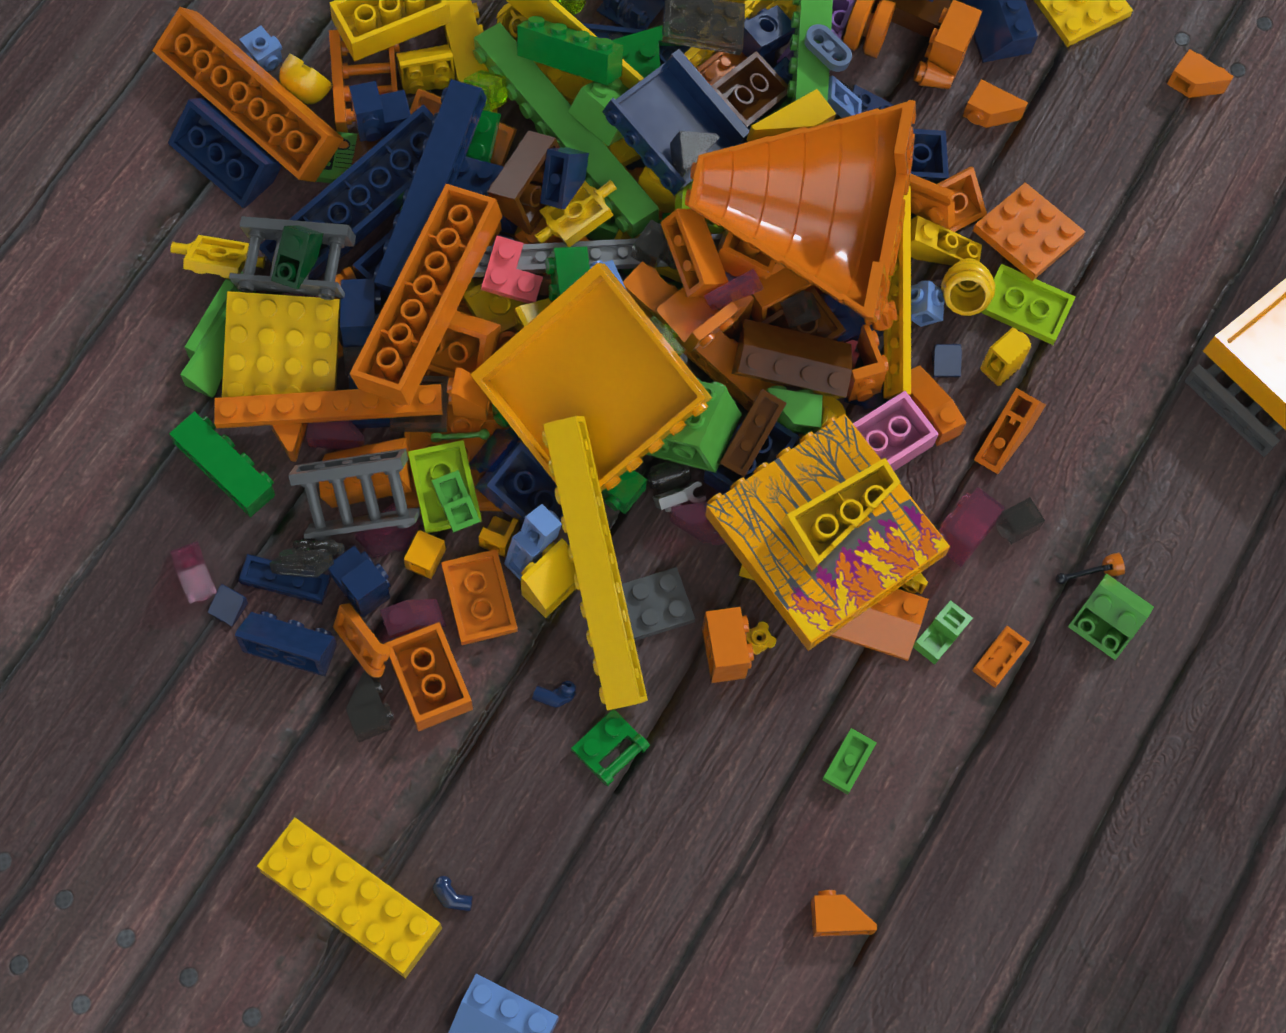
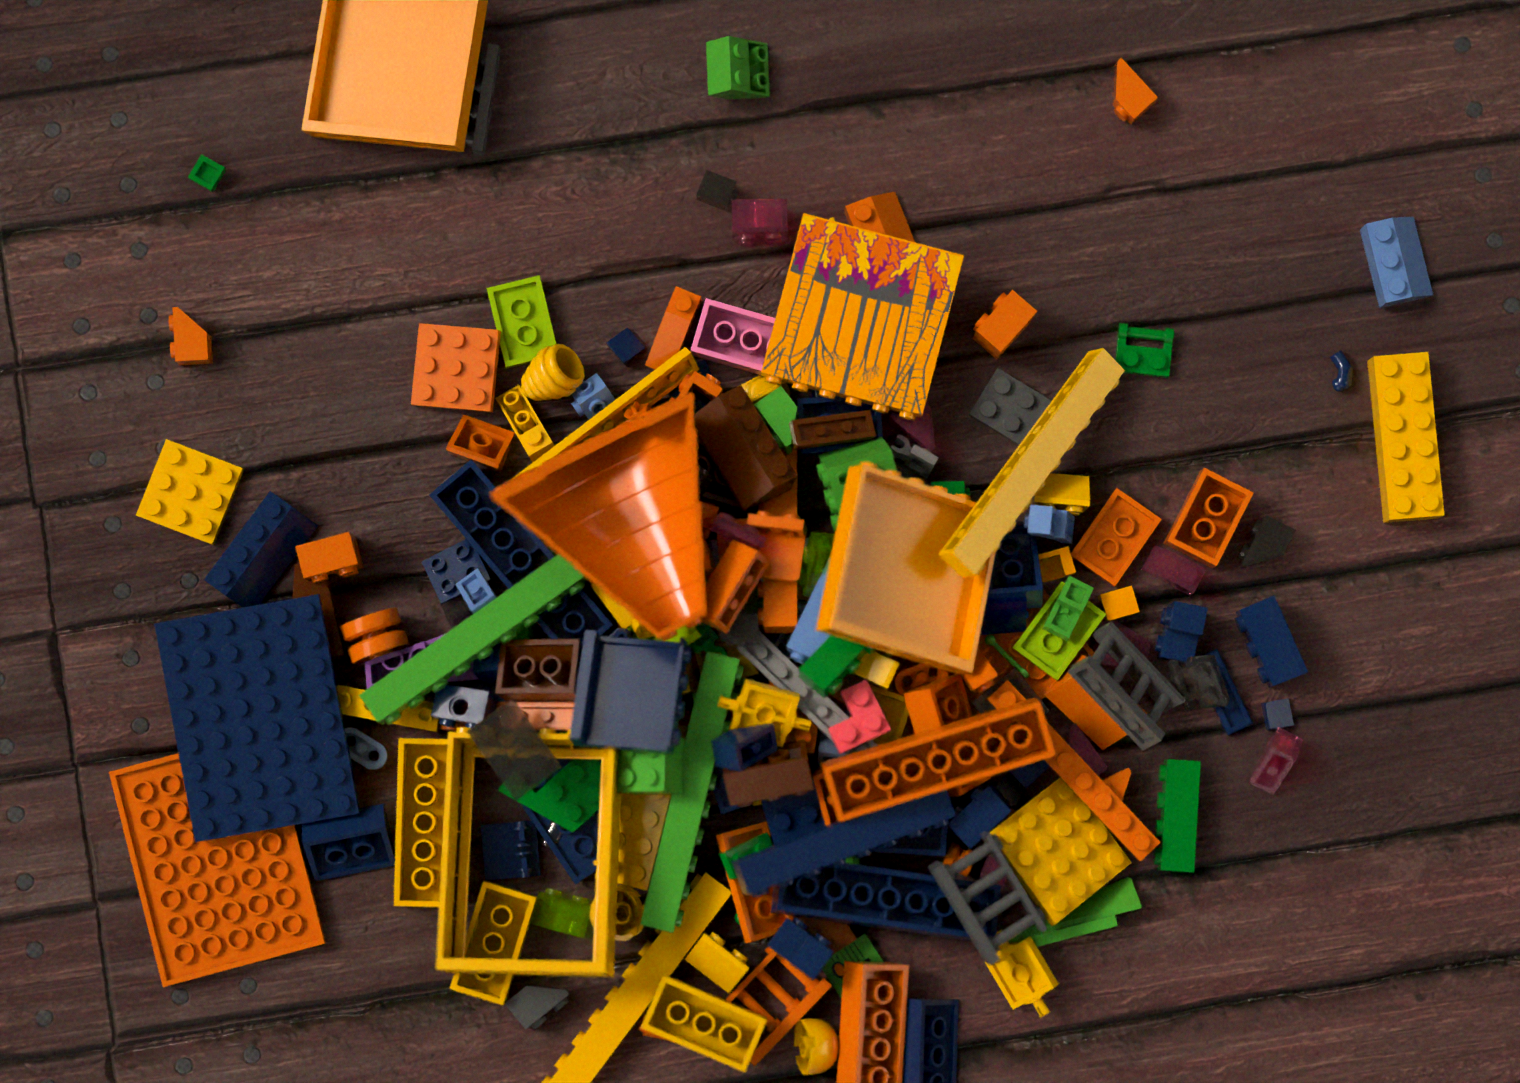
camera: 125 degrees left, 15 degrees up
(296, 255) = (992, 886): dark green slope -> none
(361, 640) = (1225, 587): orange plate -> none
(493, 87) = (710, 882): clear neon green brick -> none
(557, 697) = (1140, 419): dark blue arm -> none
(569, 50) = (633, 832): green brick -> none
(686, 148) = (650, 656): clear smoke slope -> none
(767, 640) = (965, 314): yellow plate -> none
(804, 112) = (541, 596): yellow slope -> none
(829, 48) = (454, 630): sand blue plate -> none
(833, 515) = (852, 307): yellow wedge -> none
(849, 761) = (1010, 173): bright green plate -> none
(932, 76) = (372, 554): orange cone -> none
(932, 202) = (506, 454): orange plate -> none
(942, 632) = (852, 182): bright green slope -> none
(993, 106) = (362, 484): orange slope -> none
(1000, 656) = (837, 125): orange plate -> none
(1006, 356) = (589, 299): yellow brick -> none
(1009, 430) = (647, 253): orange slope -> none
(1111, 565) = (695, 98): hinge -> none

